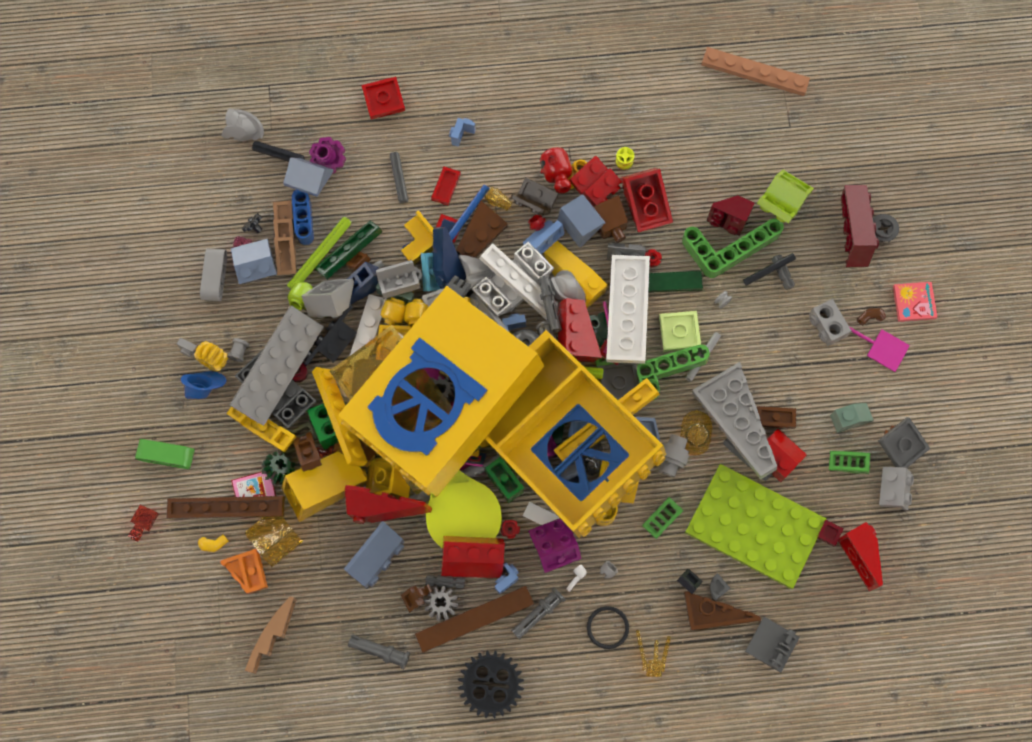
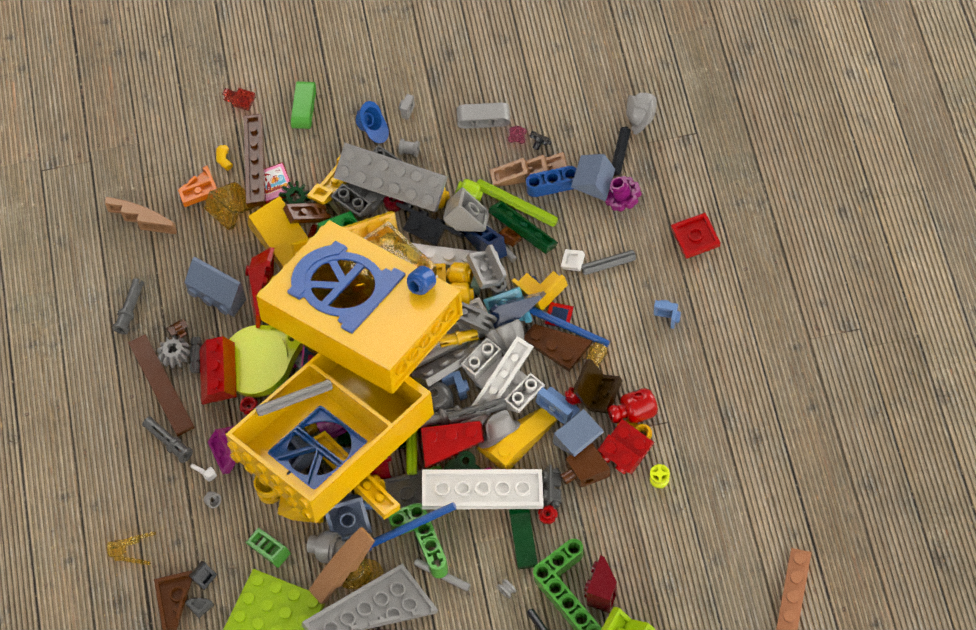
camera: 90 degrees right, 10 degrees down
(211, 356) = (398, 124): yellow gear -> none
(253, 261) = (497, 144): sand blue slope -> none
(393, 207) = (572, 260): none -> white plate
(436, 318) = (421, 280): none -> blue head
(445, 186) = (605, 307): red tile -> none
(494, 665) = (82, 403): black gear -> none
(504, 582) = (198, 408): medium blue bracket -> none
(538, 462) = (294, 397): none -> light grey axle
(625, 622) = (152, 489): black tyre -> none
(647, 199) = (614, 501): red slope -> none
(671, 421) = (413, 524): none -> blue bar
(679, 330) = (468, 549): yellowish green tile -> none
(700, 439) = (340, 566): none -> medium nougat slope

